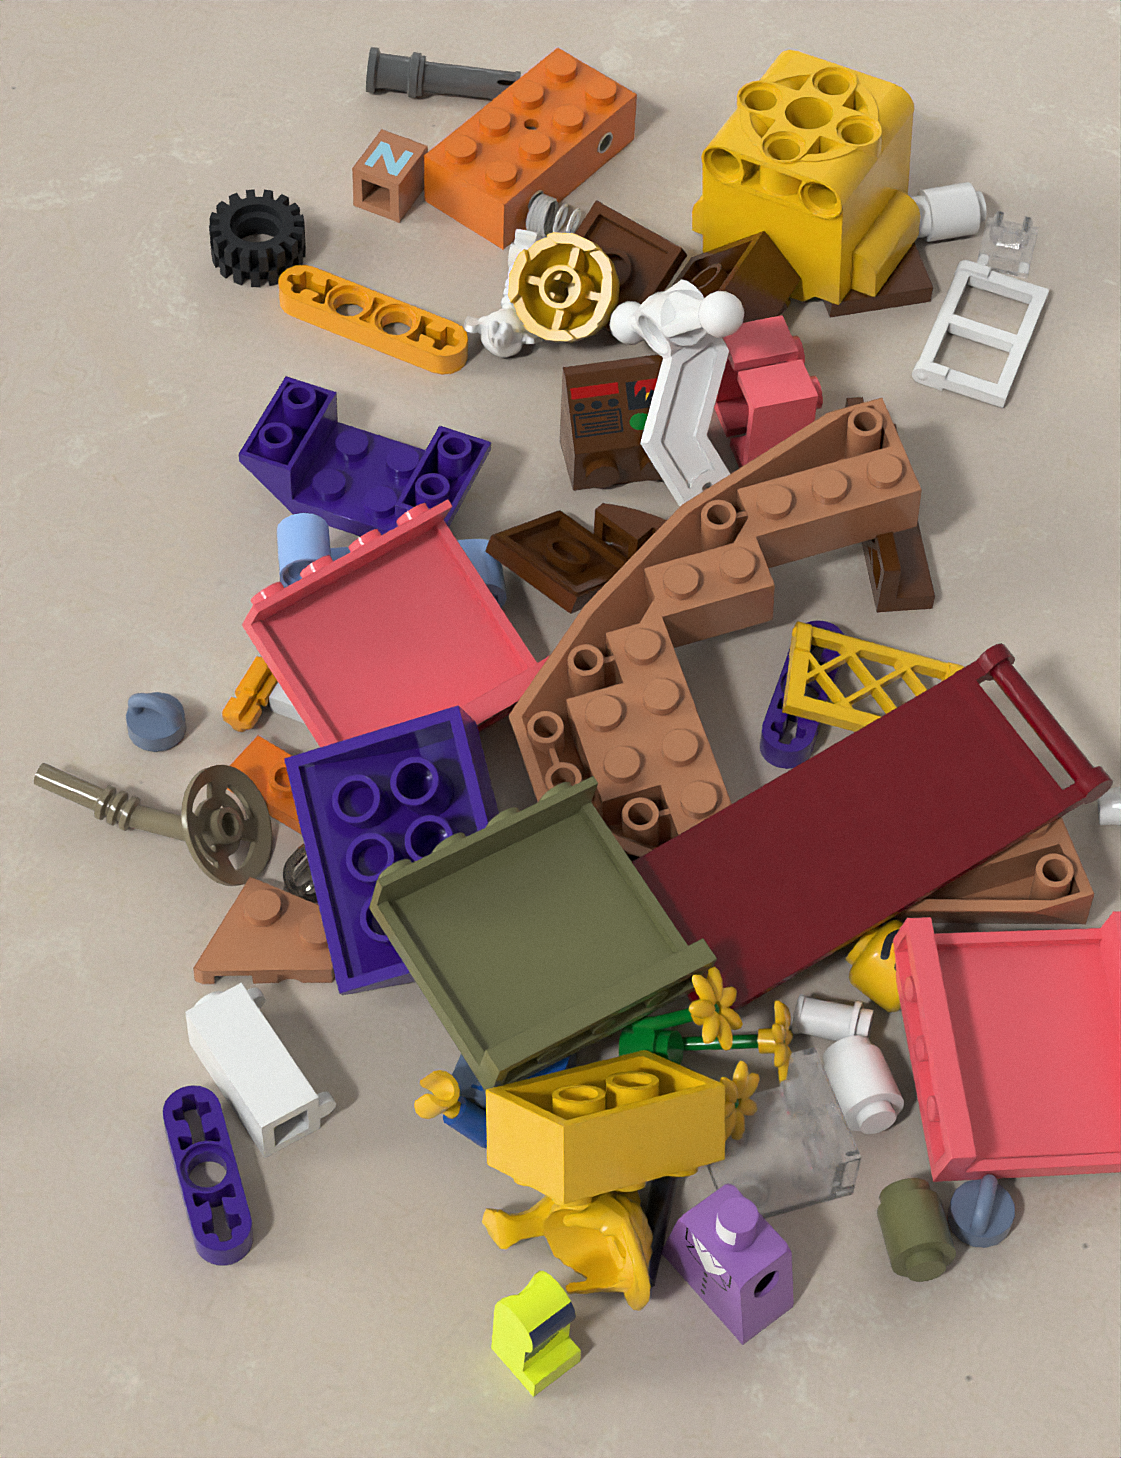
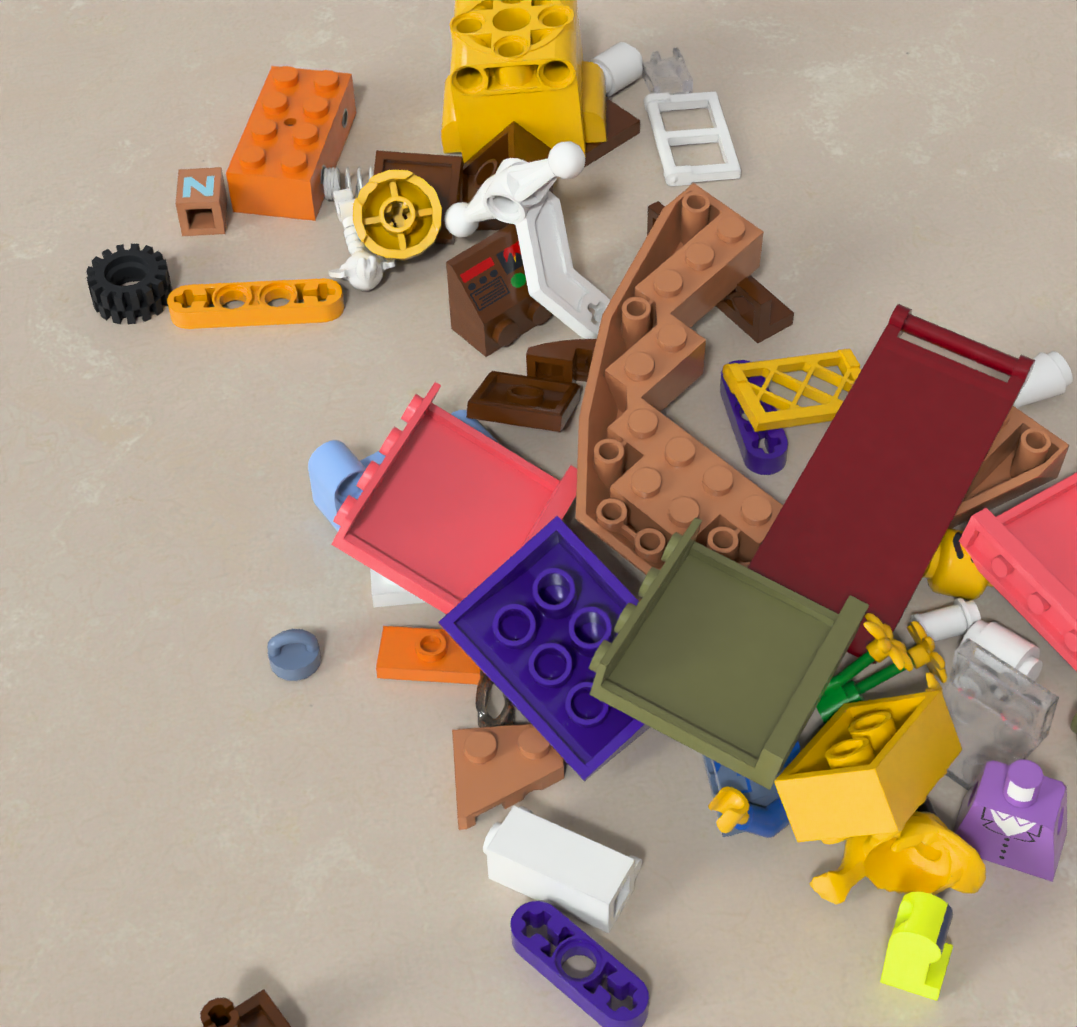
camera: 25 degrees left, 5 degrees down
(209, 832) = (402, 707): dark tan dish -> none
(251, 694) = (355, 594): light orange axle -> none
(349, 473) = (304, 414): dark purple slope -> none
(419, 76) = (172, 129): dark grey pin -> none
(765, 388) = (601, 226): coral piece -> none

